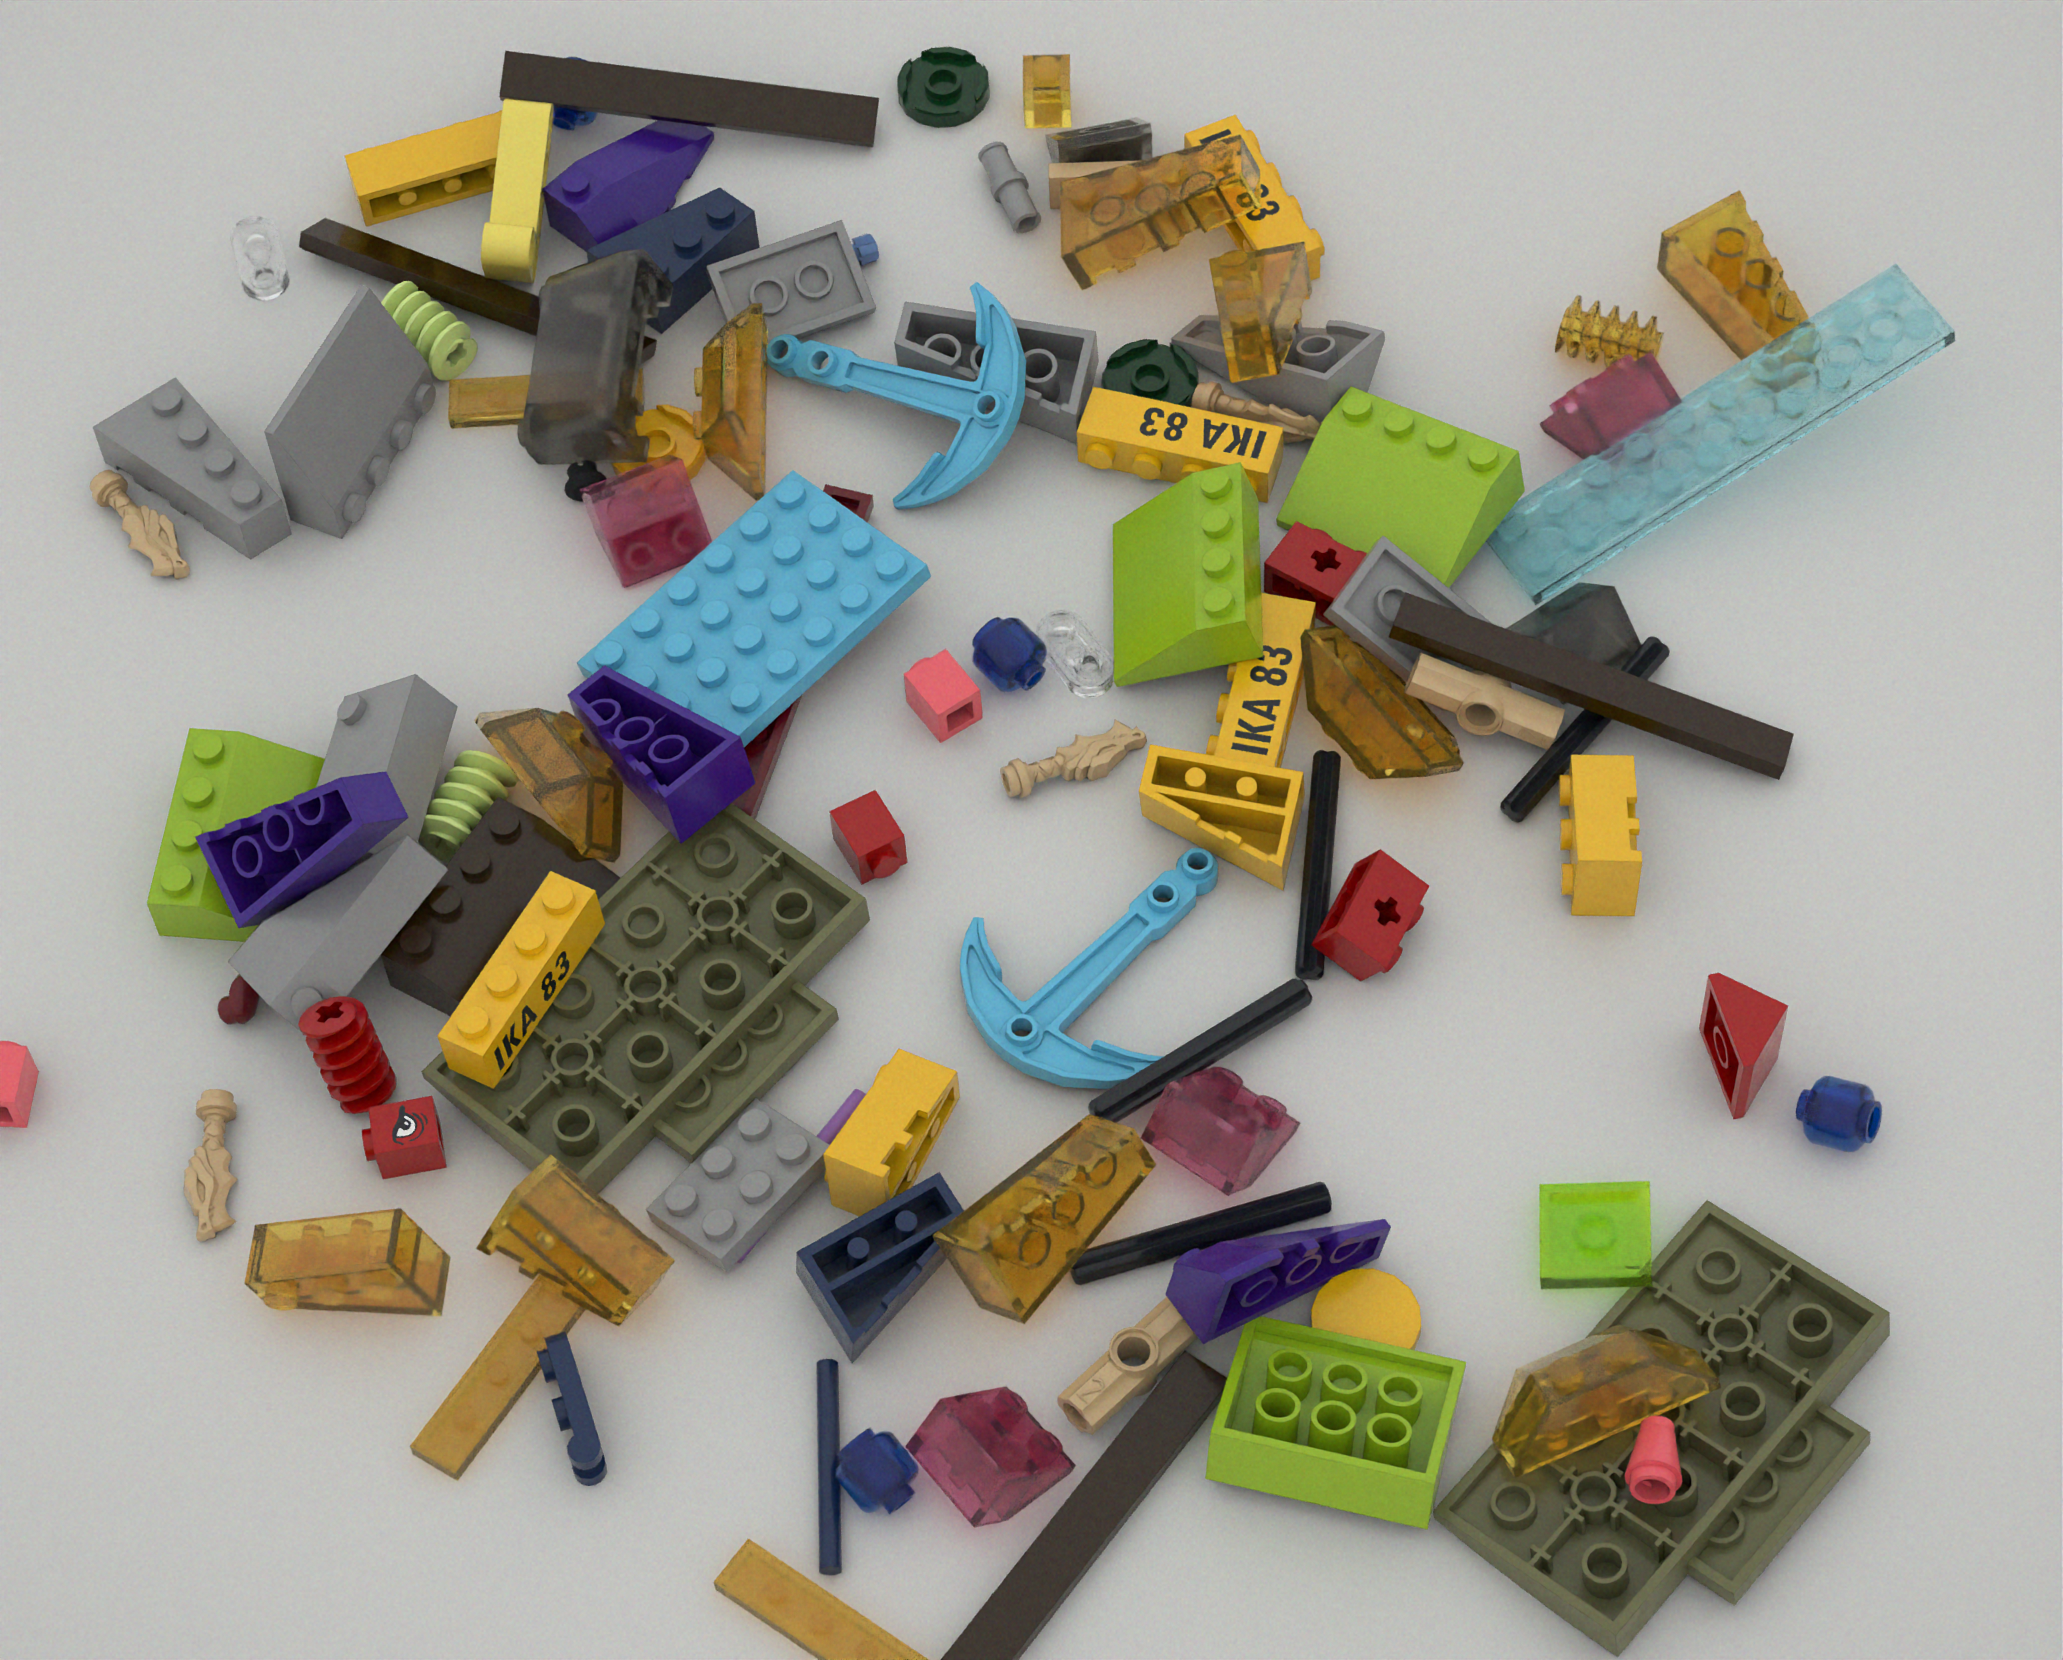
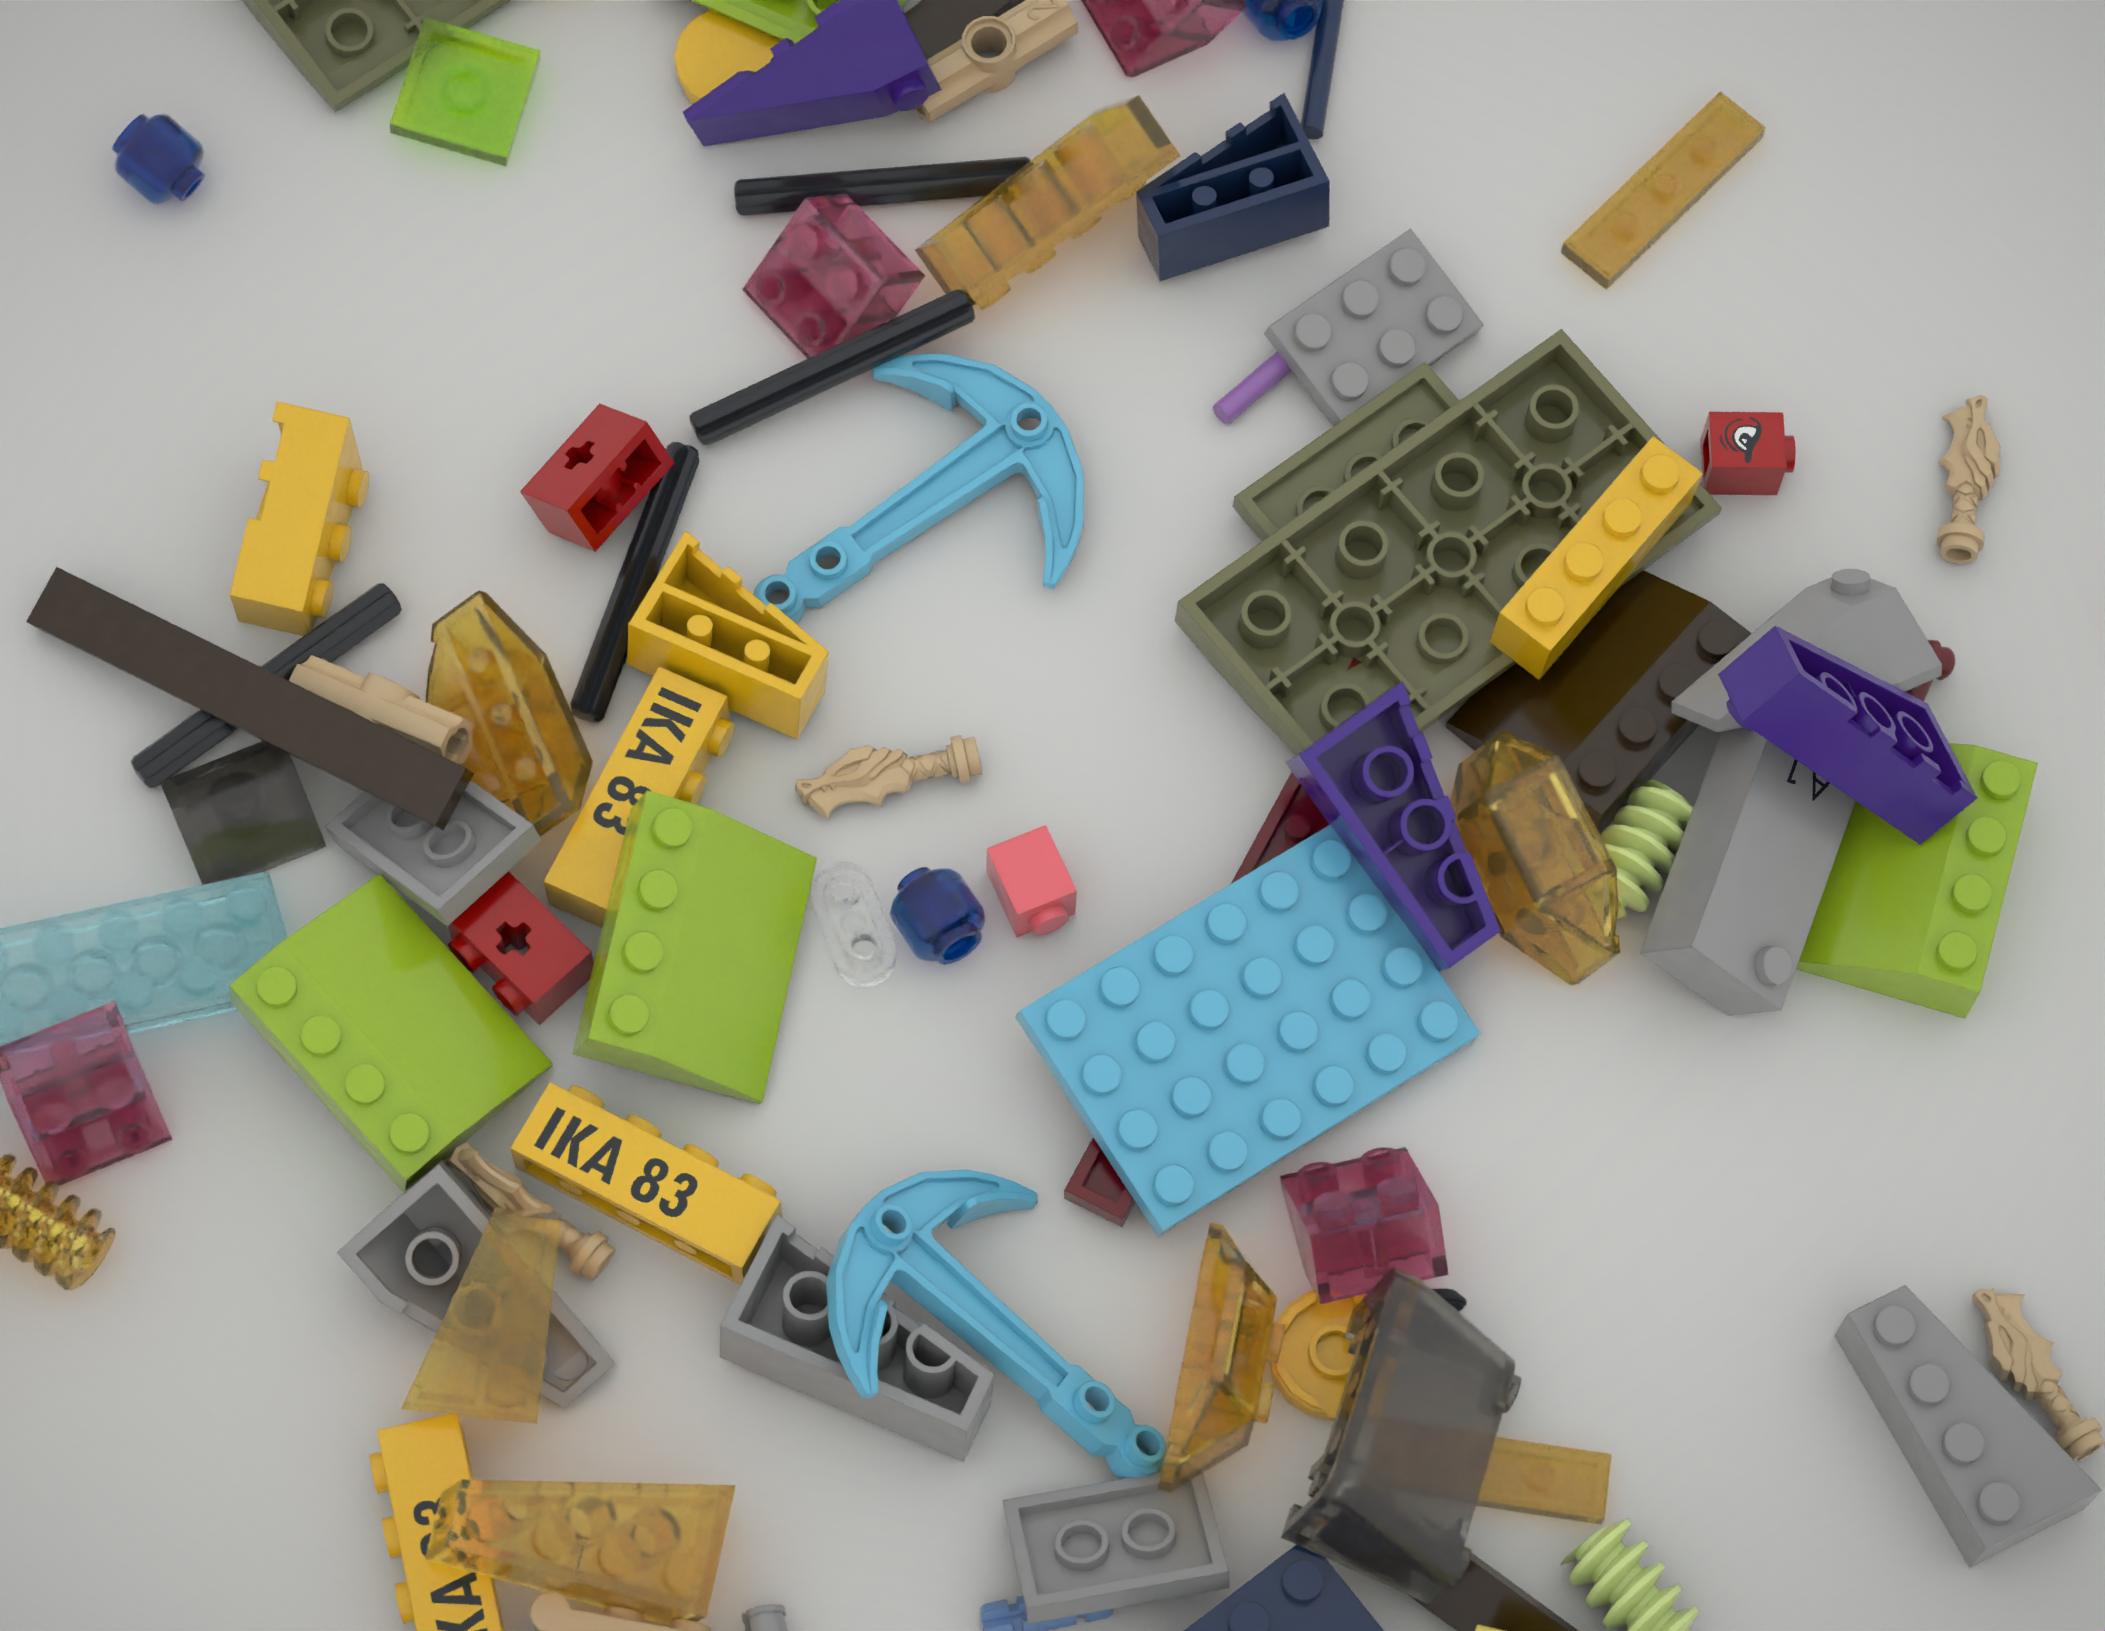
camera: 175 degrees left, 10 degrees up
(348, 417) = (1740, 1421): light grey slope -> none
(348, 1053) = (1806, 537): red piece -> none
(349, 1265) = (1822, 306): clear yellow wedge -> none
(573, 1410) = (1588, 124): dark blue plate -> none
(578, 1241) = (1568, 274): clear yellow wedge -> none
(868, 837) = (1157, 709): red brick -> none
(890, 1133) = (1202, 333): yellow wedge -> none
(1152, 372) = (659, 1313): dark green tile -> none
(1741, 1037) = (231, 228): red slope -> none

